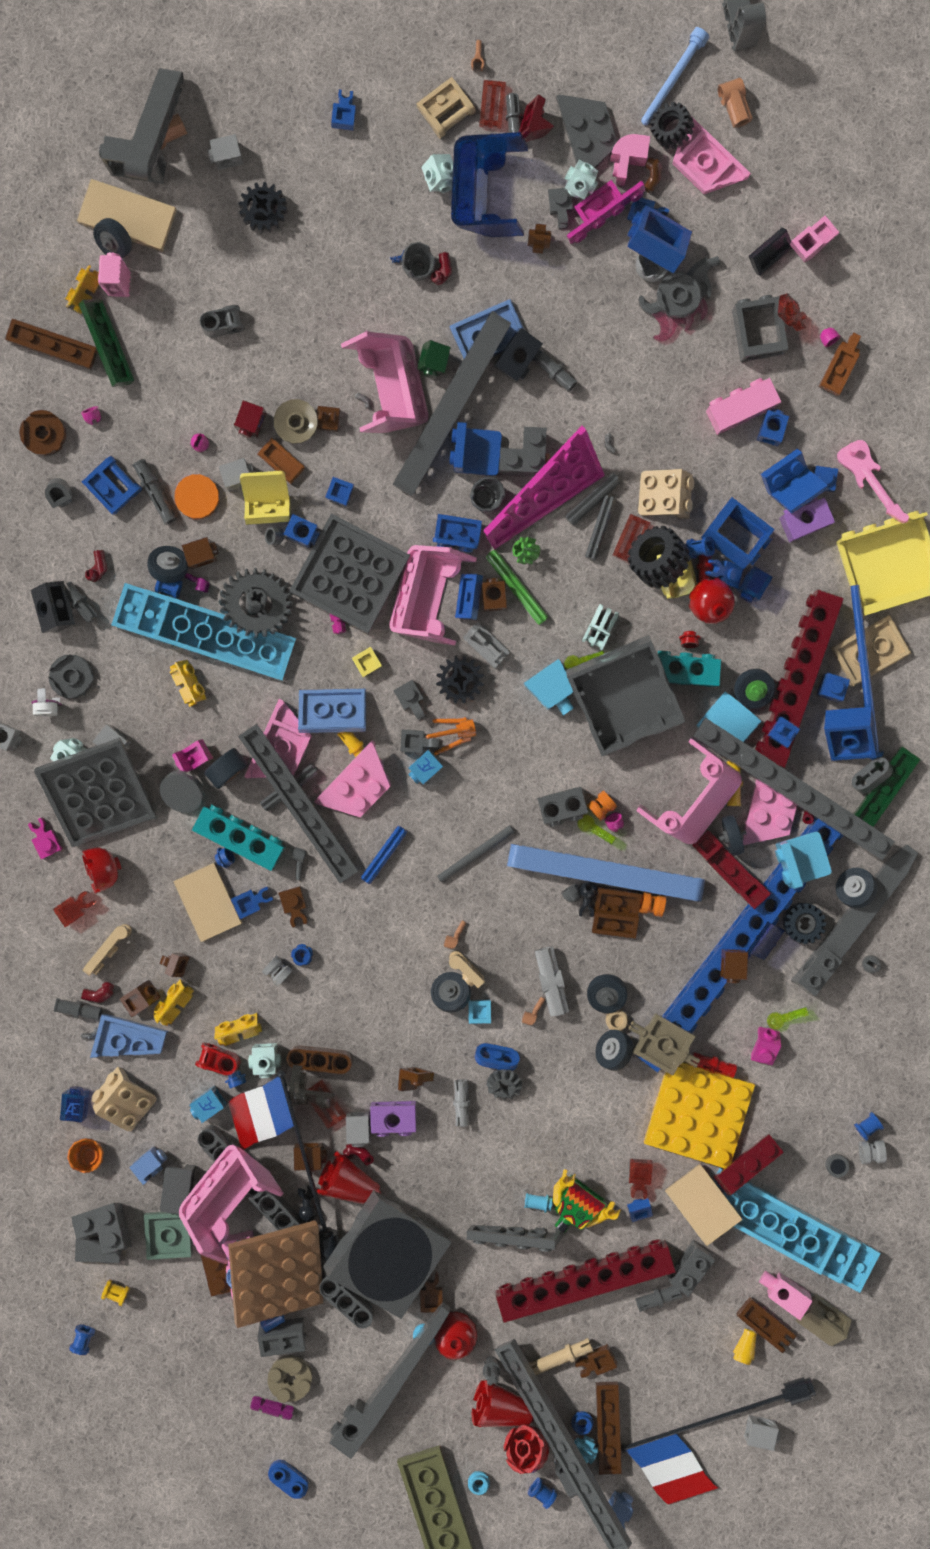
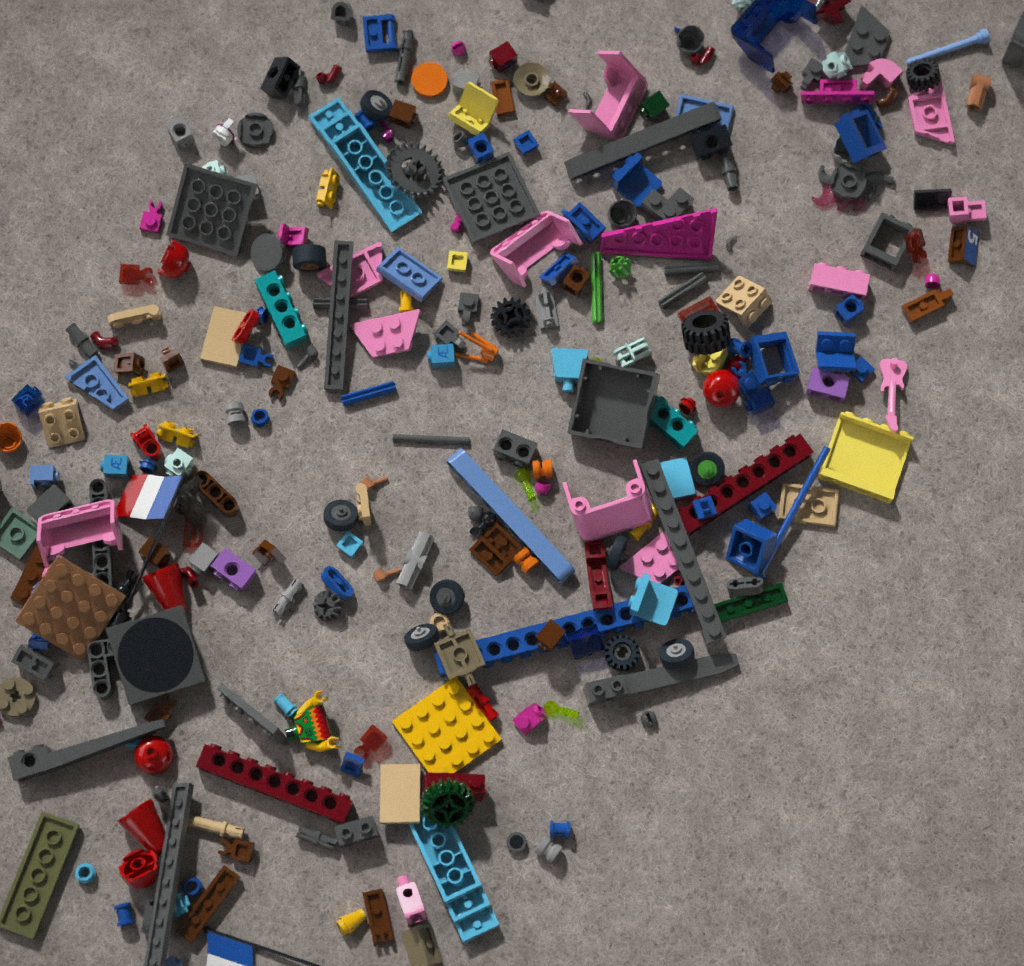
camera: 30 degrees right, 15 degrees down
(222, 890) = (249, 321): none -> red plate
(759, 1190) = (457, 810): none -> dark green gear
(833, 278) = (963, 245): none -> reddish brown panel

